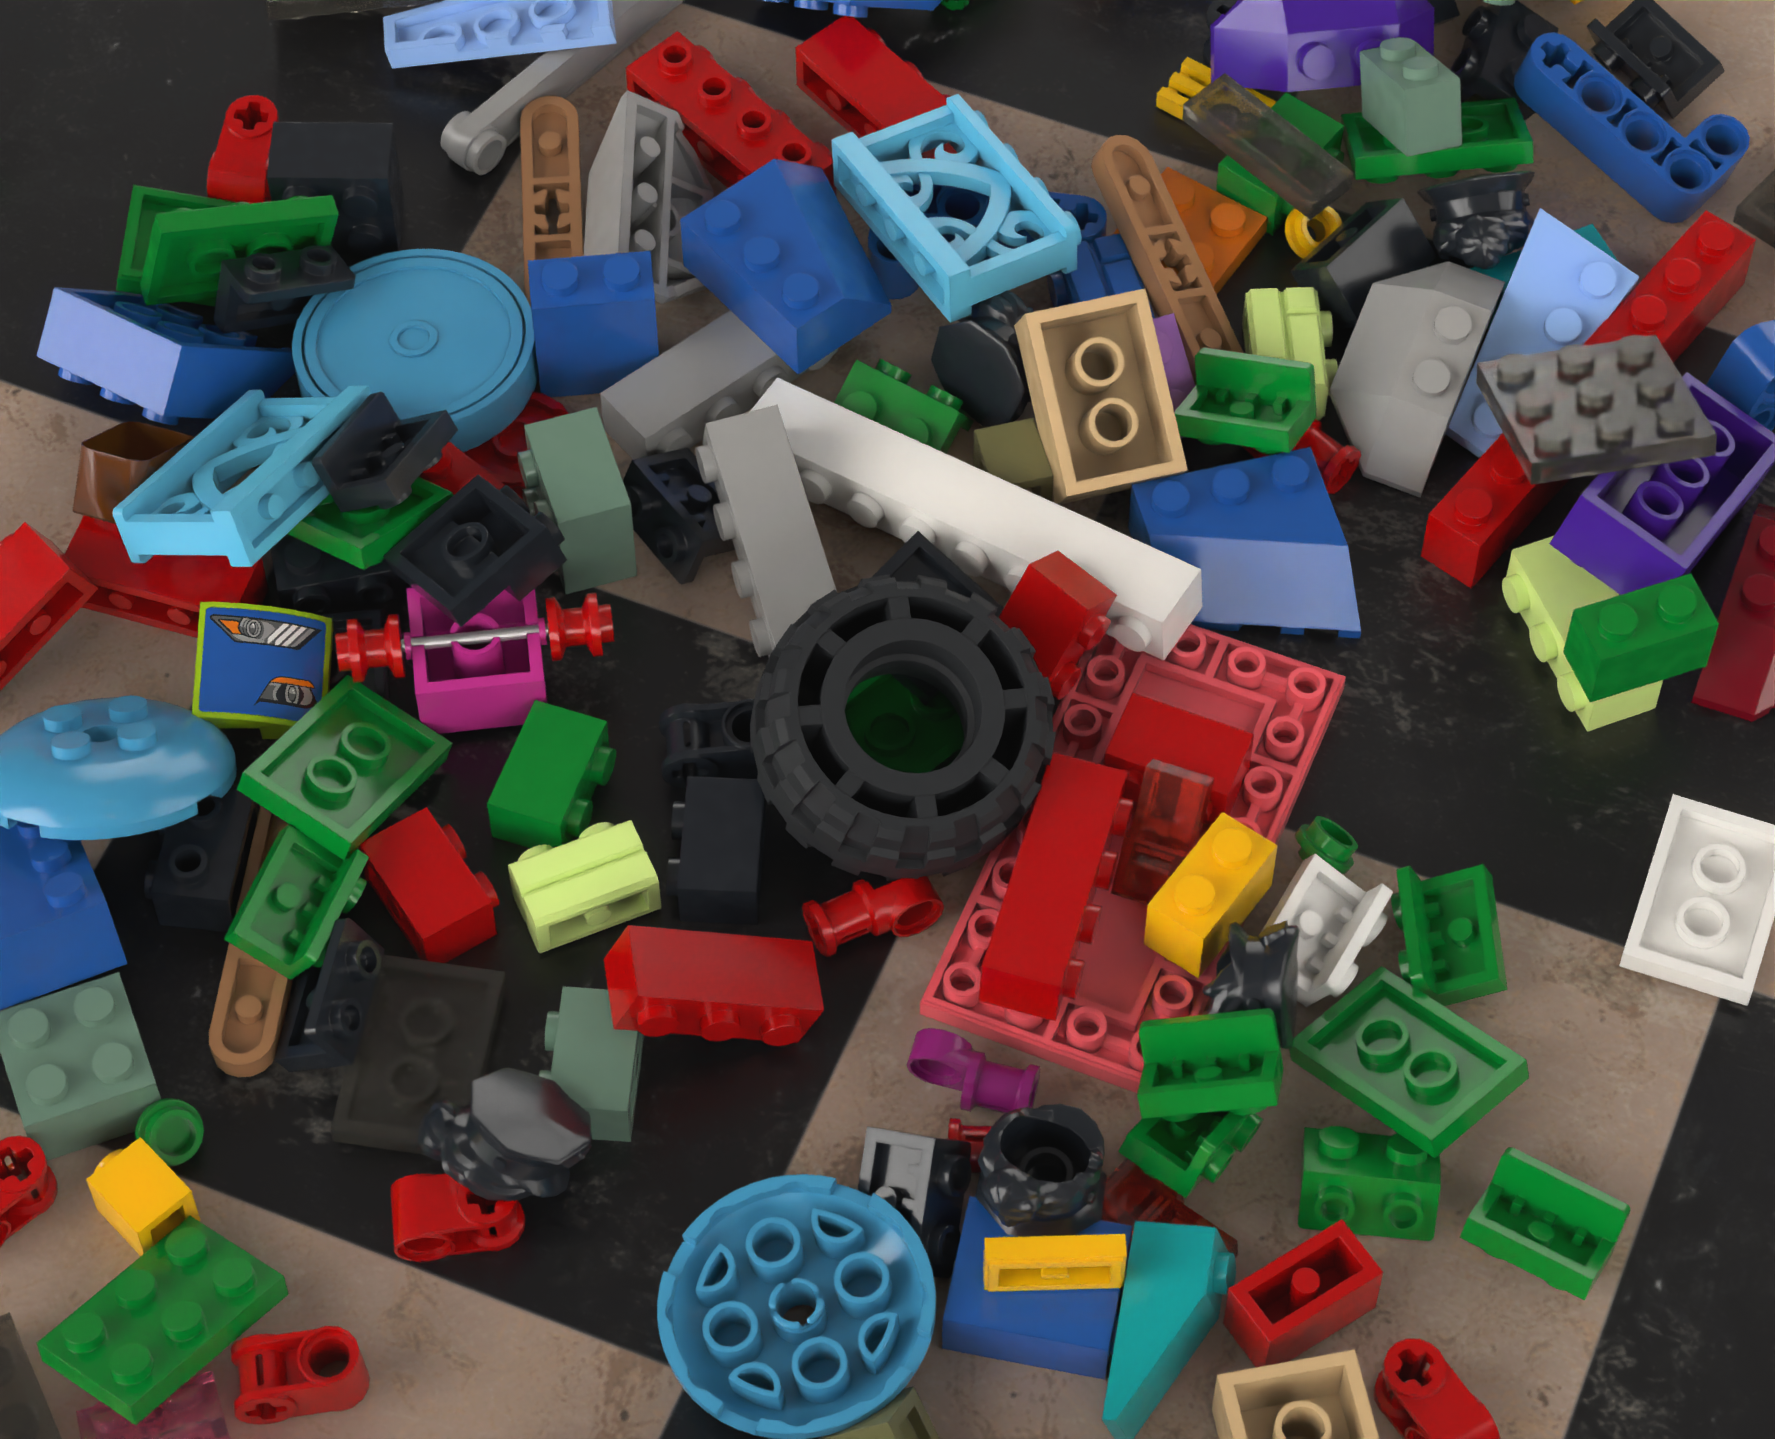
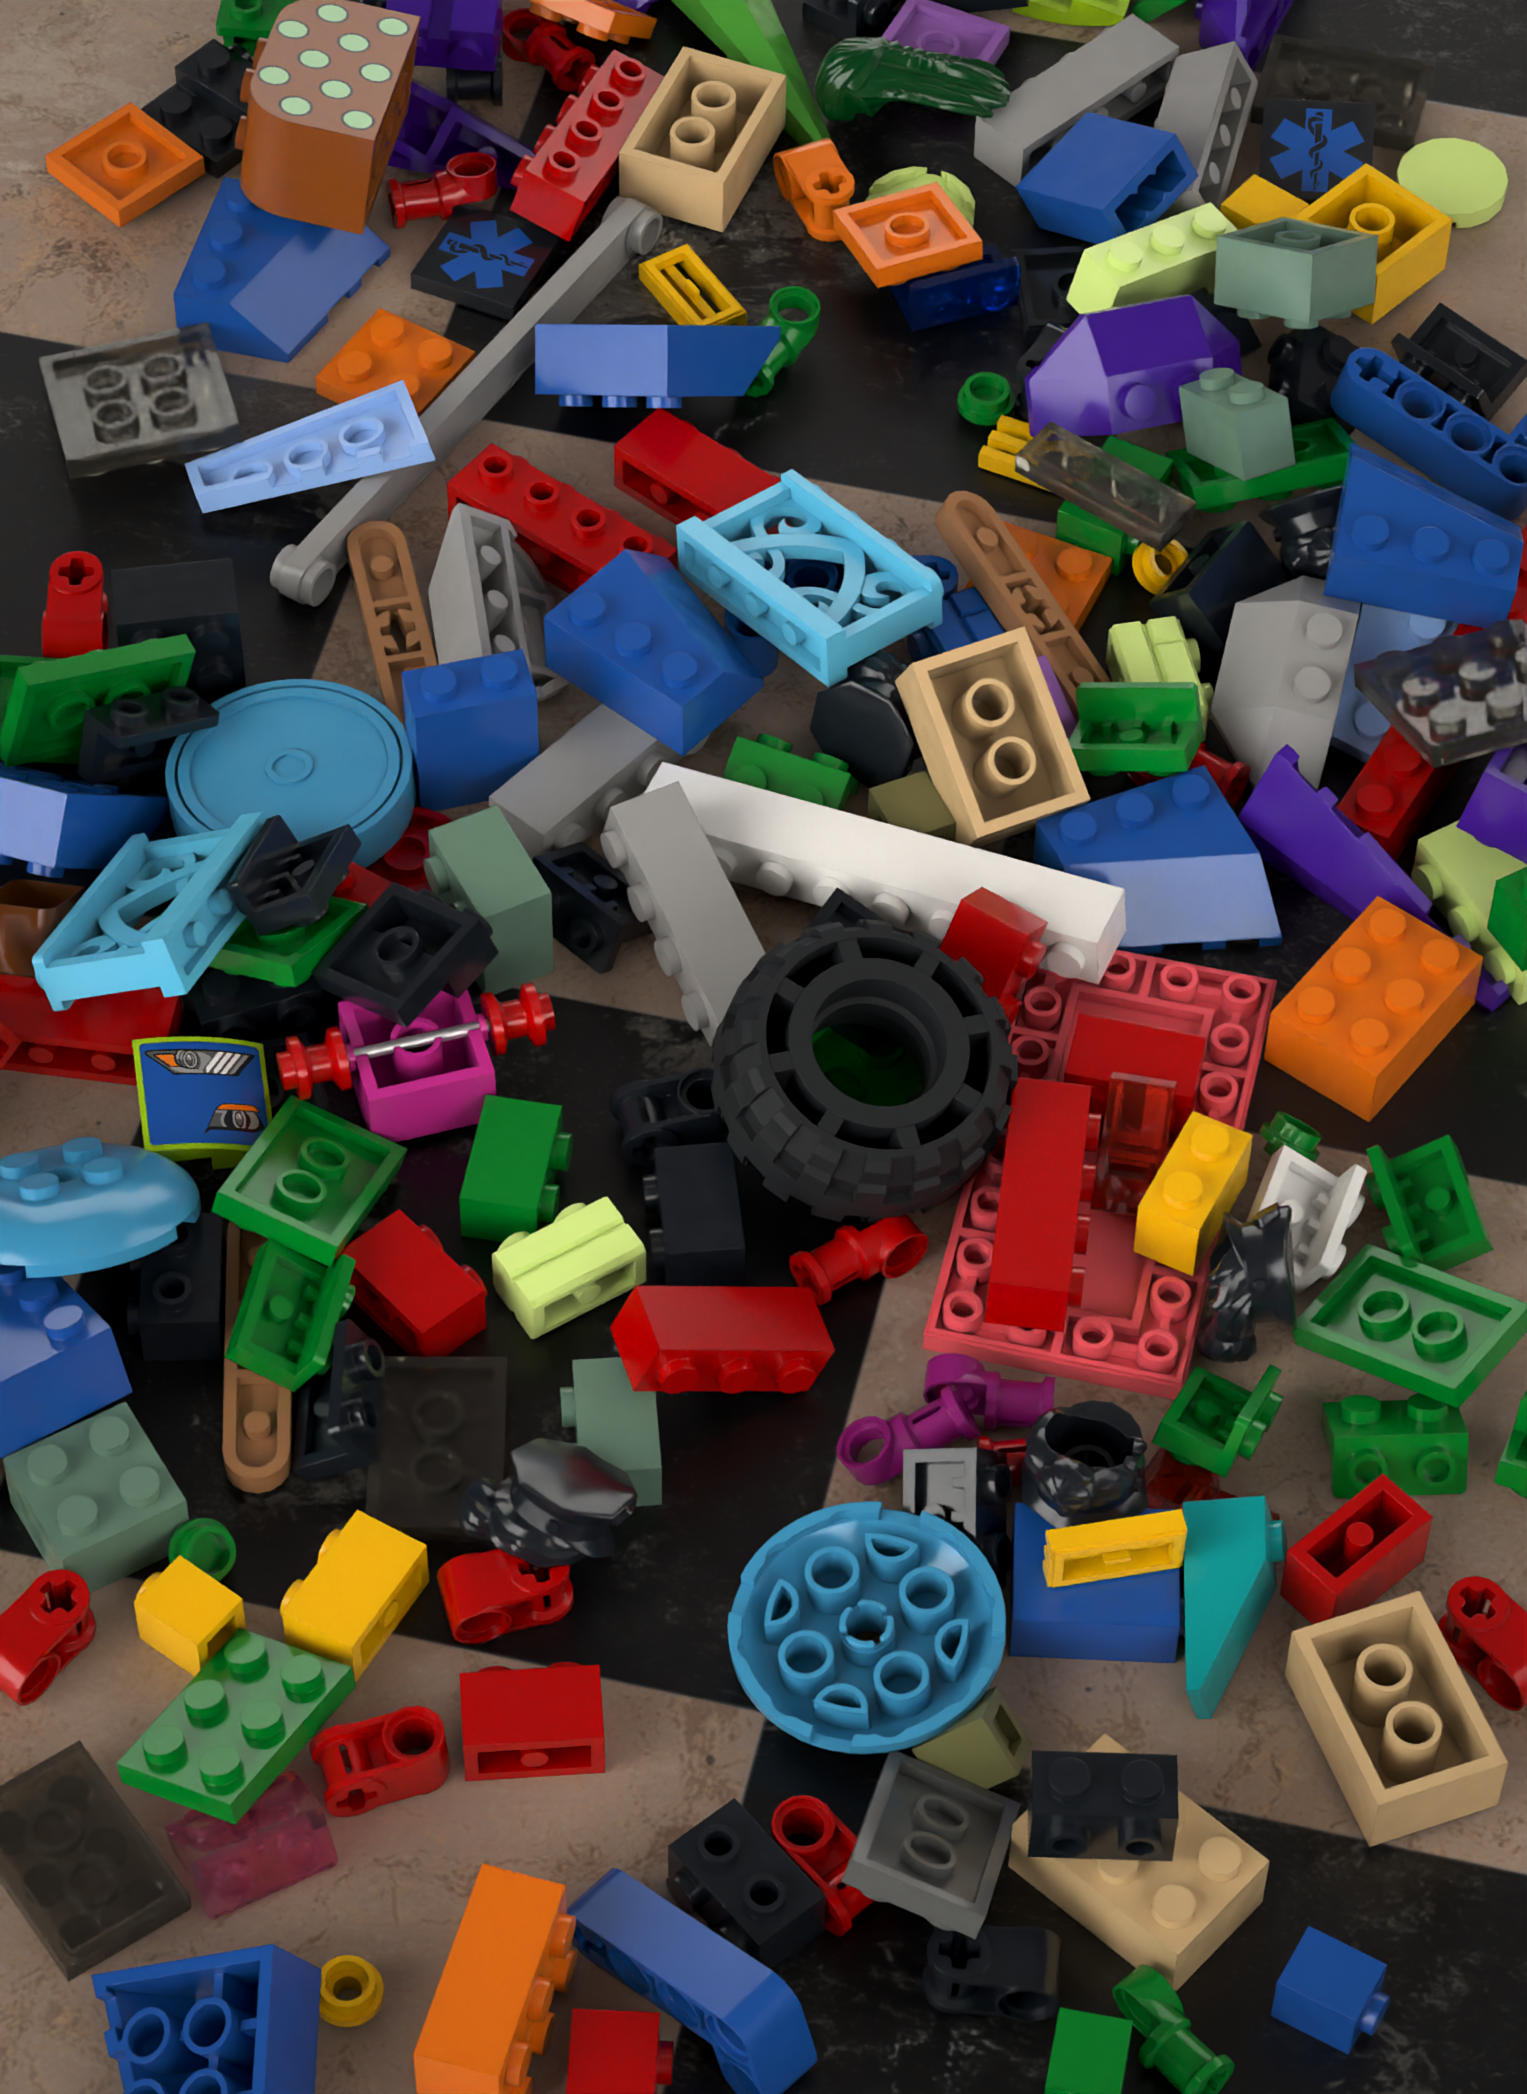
camera: 10 degrees left, 5 degrees down
(306, 1198) = (355, 1592): none -> yellow brick
(452, 1354) = (532, 1722): none -> red brick
(882, 1106) = (929, 1427): none -> magenta connector
(1175, 38) = (985, 398): none -> green plate
(1210, 1064) = (1227, 1346): green bracket -> none
(1416, 549) = (1332, 857): none -> dark purple wedge
(1434, 719) = (1373, 1008): none -> orange brick
(1566, 246) = (1420, 547): none -> blue wedge

